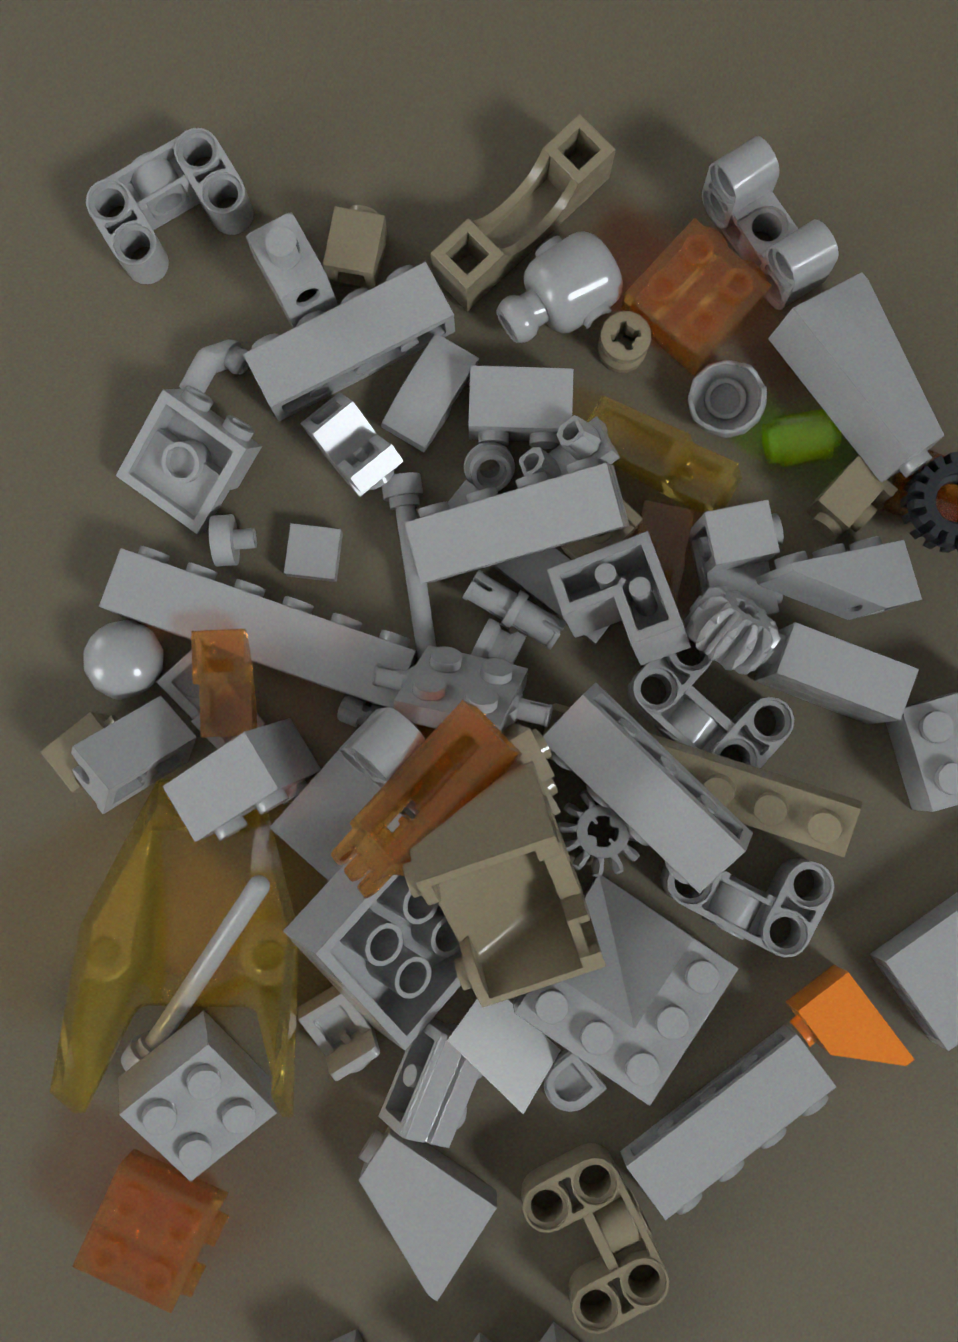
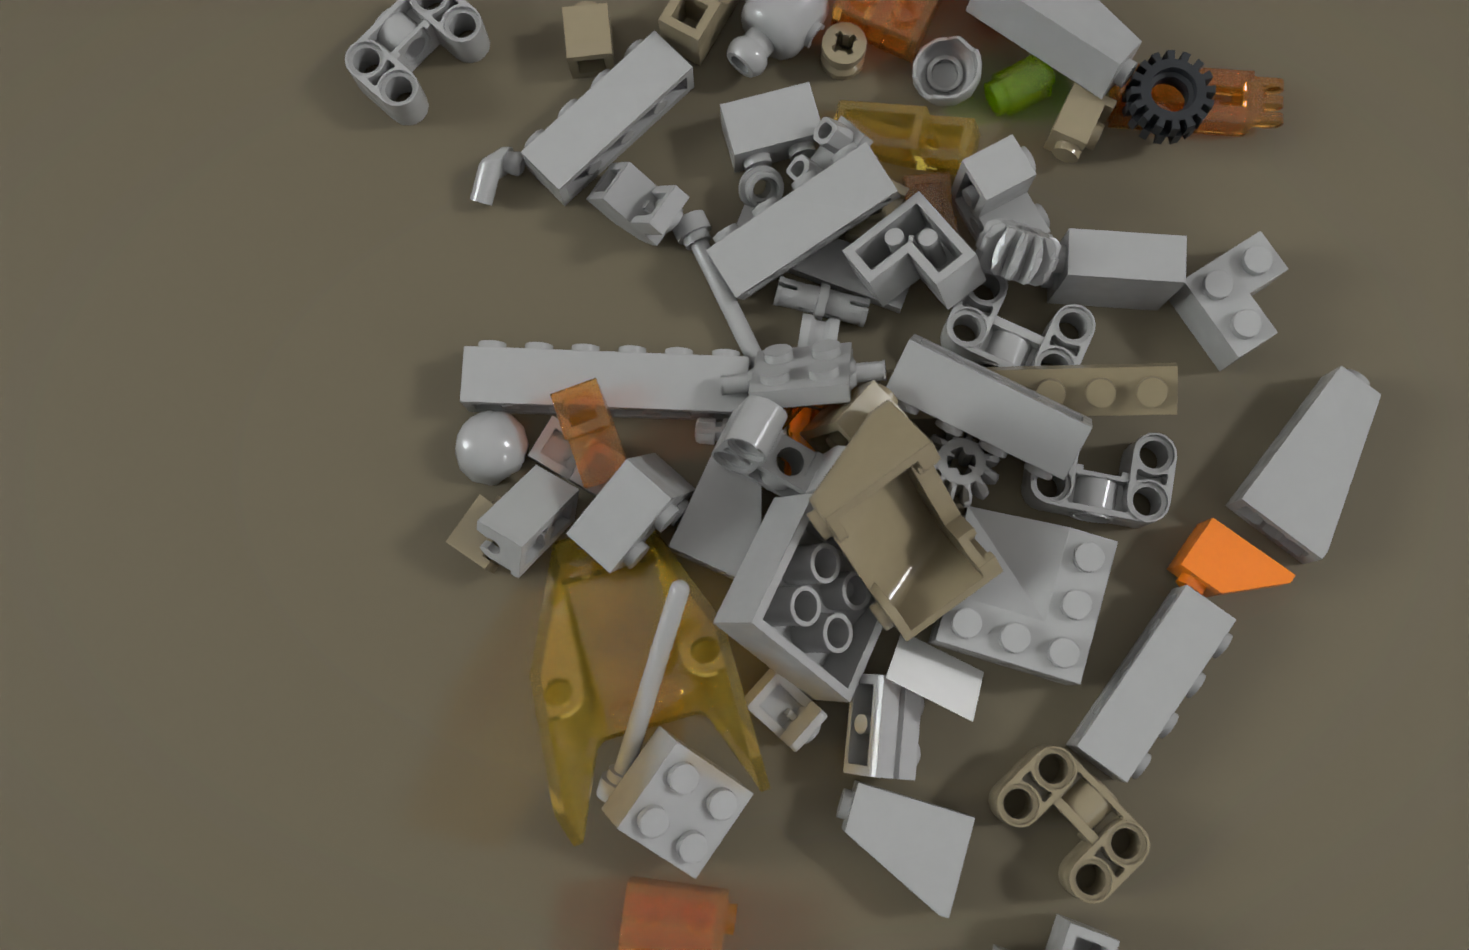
camera: 15 degrees left, 5 degrees down
(189, 457) = (498, 255): light grey plate -> none
(228, 540) = (555, 314): light grey tile -> none
(291, 267) = (536, 66): light grey torso -> none
(313, 552) = (630, 306): light grey tile -> none
(429, 392) = (689, 141): light grey slope -> none
(441, 778) = (808, 444): clear orange hinge -> none
(572, 1083) = (1003, 694): light grey tile -> none
(847, 583) = (1100, 189): light grey slope -> none

